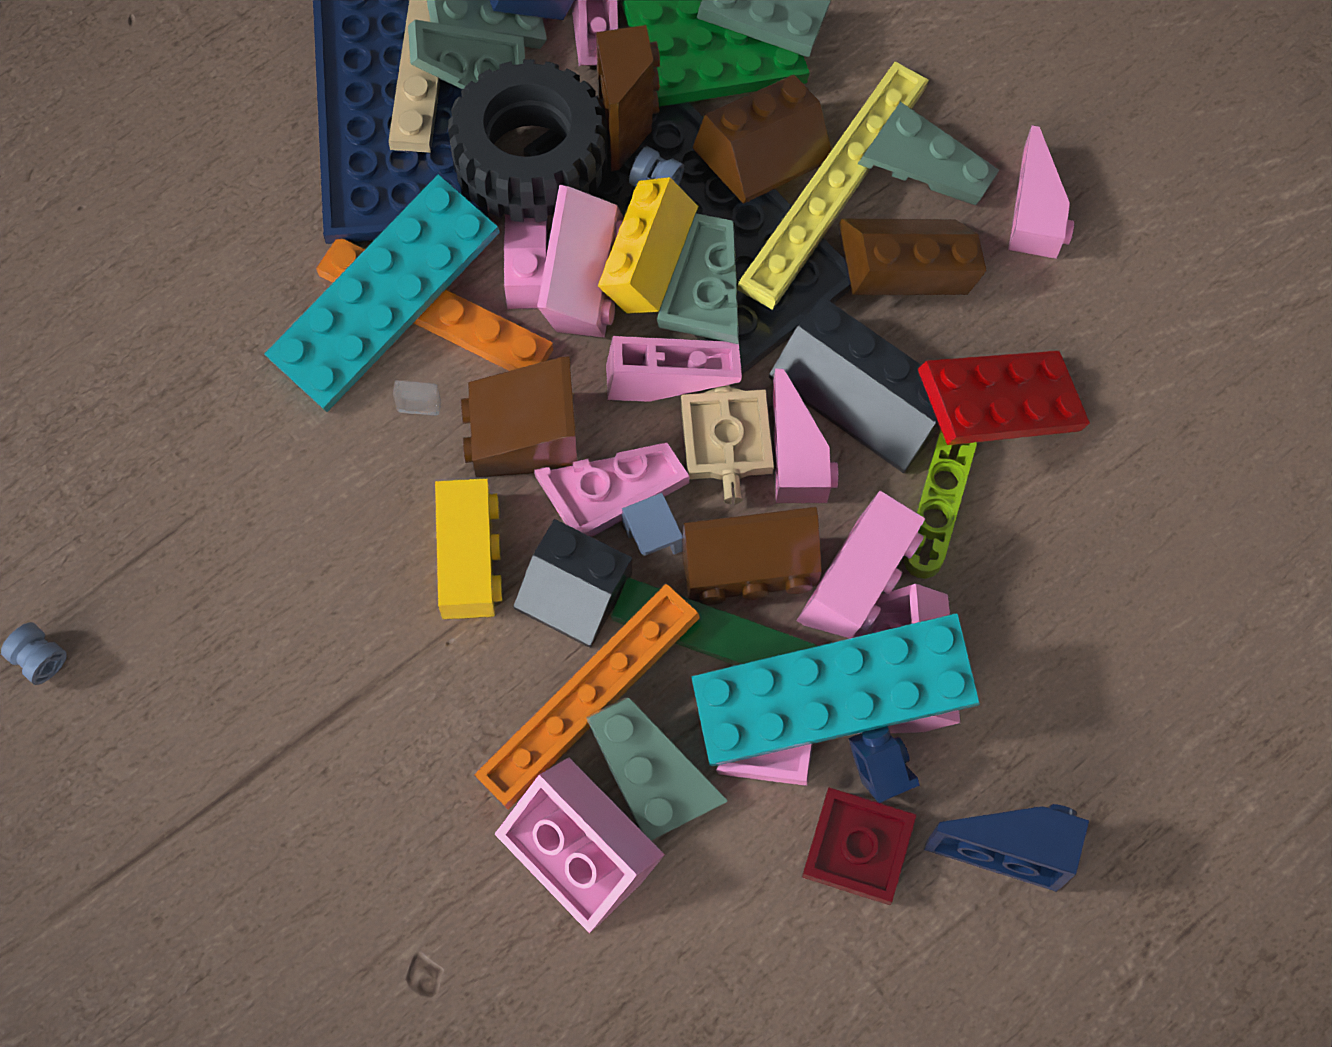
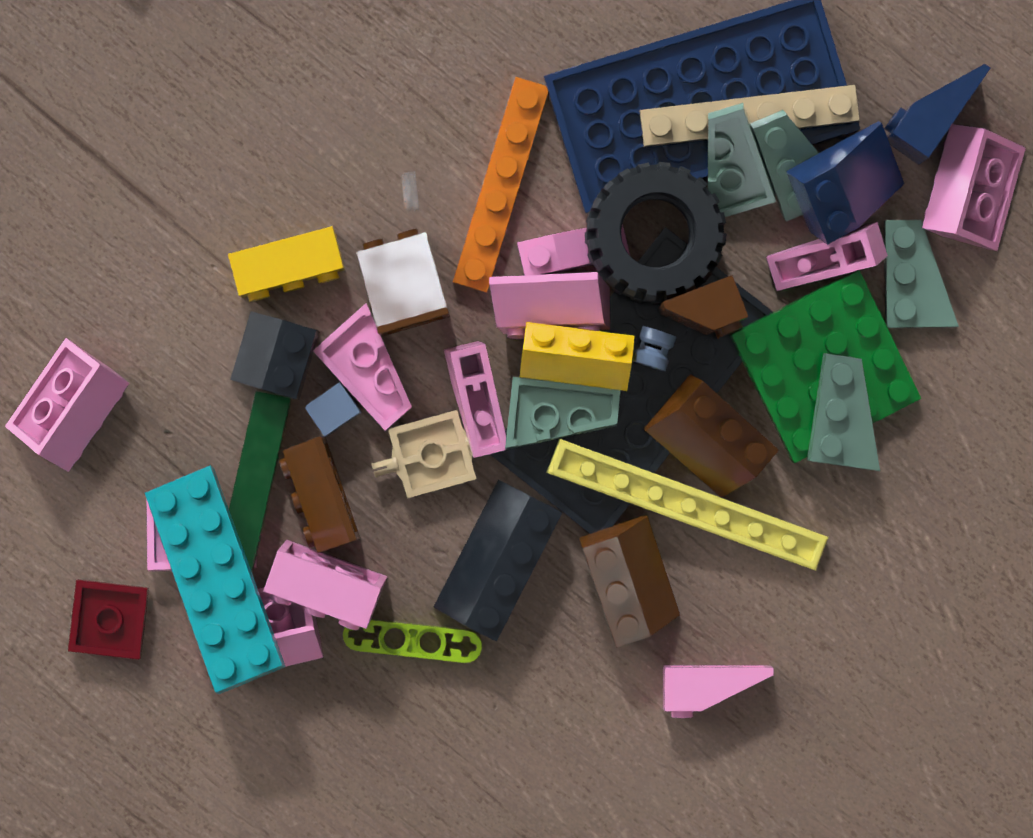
camera: 90 degrees right, 20 degrees up
(382, 293) = (497, 140): teal plate -> none
(591, 689) = (182, 387): orange plate -> none
(650, 770) = (131, 448): sand green wing -> none
(800, 449) = (425, 517): bright pink slope -> none
(882, 763) = (169, 629): dark blue brick -> none
(924, 152) = (730, 580): sand green wing -> none
(1003, 396) = (503, 678): red plate -> none
(1024, 844) = (127, 742): dark blue slope -> none

